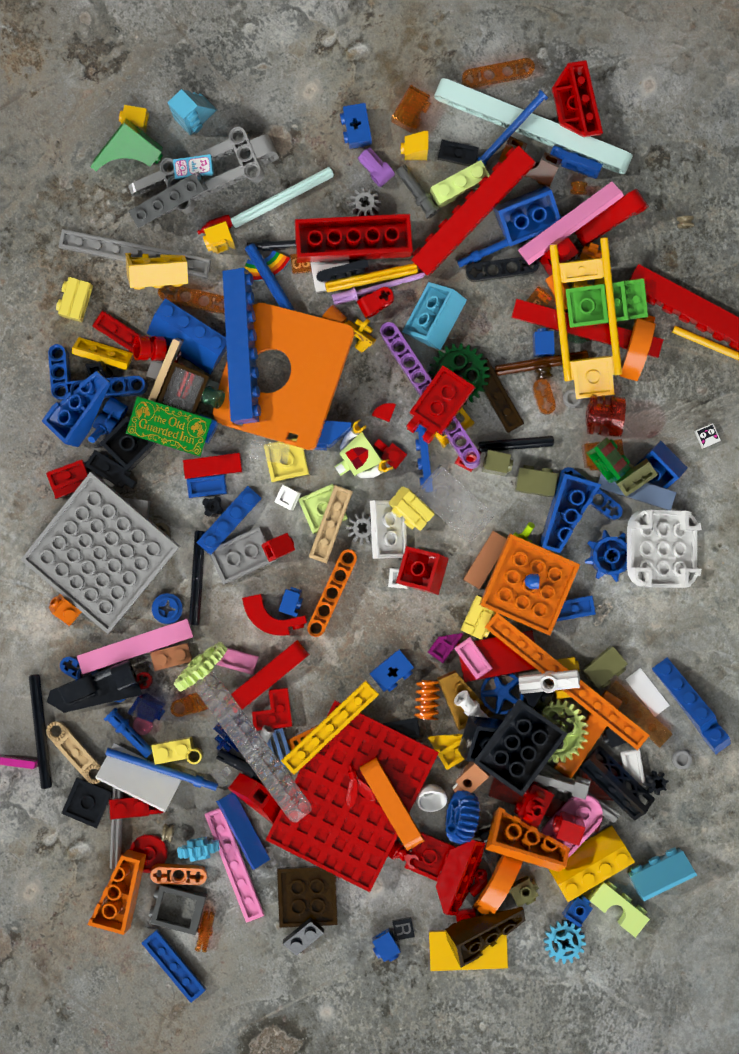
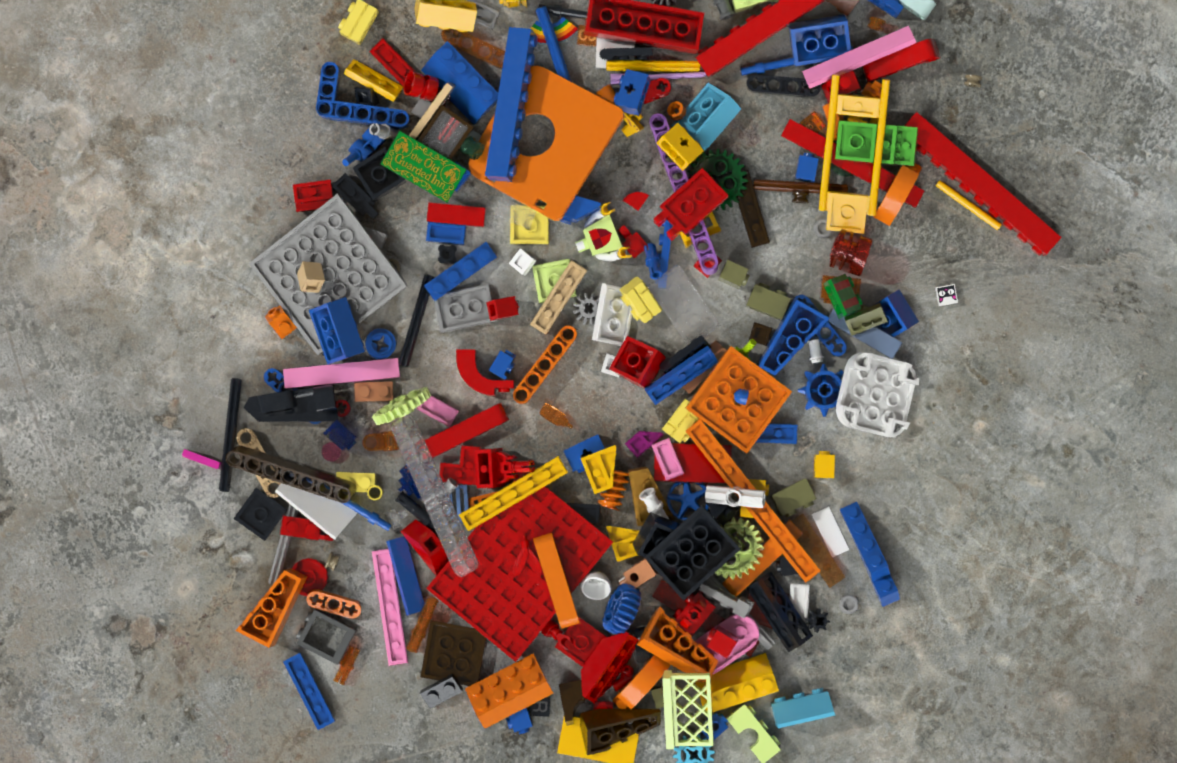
camera: 10 degrees right, 0 degrees up
(76, 413) = (335, 133): blue wedge -> none
(82, 559) = (310, 277): none -> tan panel
(99, 762) = (300, 473): none -> dark brown beam
(120, 606) = (337, 330): none -> blue slope
(122, 400) = (383, 131): none -> light grey pin
(122, 726) = (311, 448): blue pin -> none
(198, 849) = (359, 582): medium azure gear -> none
(268, 882) = (418, 632): none -> clear orange pin
(308, 704) = (495, 467): none -> red brick
(353, 640) = (555, 416): none -> clear orange piece
(359, 317) = (632, 102): none -> blue brick
(369, 922) = (508, 691): none -> orange brick
(408, 320) = (682, 111): none -> orange bush
(410, 683) = (600, 469): none -> yellow wing
(415, 468) = (652, 261): none -> blue pin
(416, 349) = (680, 146): none -> yellow brick
(432, 915) = (571, 699): none -> dark brown arch
(467, 554) = (695, 346): none -> black hinge
(468, 573) = (681, 375): none -> blue plate
(519, 443) = (757, 260): black axle -> none
(533, 906) = (671, 706): none -> yellowish green fence
(535, 514) = (760, 333): none -> dark brown tile
(547, 394) = (790, 220): clear orange beam -> none
(593, 520) = (815, 351): none -> white pin
(627, 629) = (824, 465): none -> yellow brick

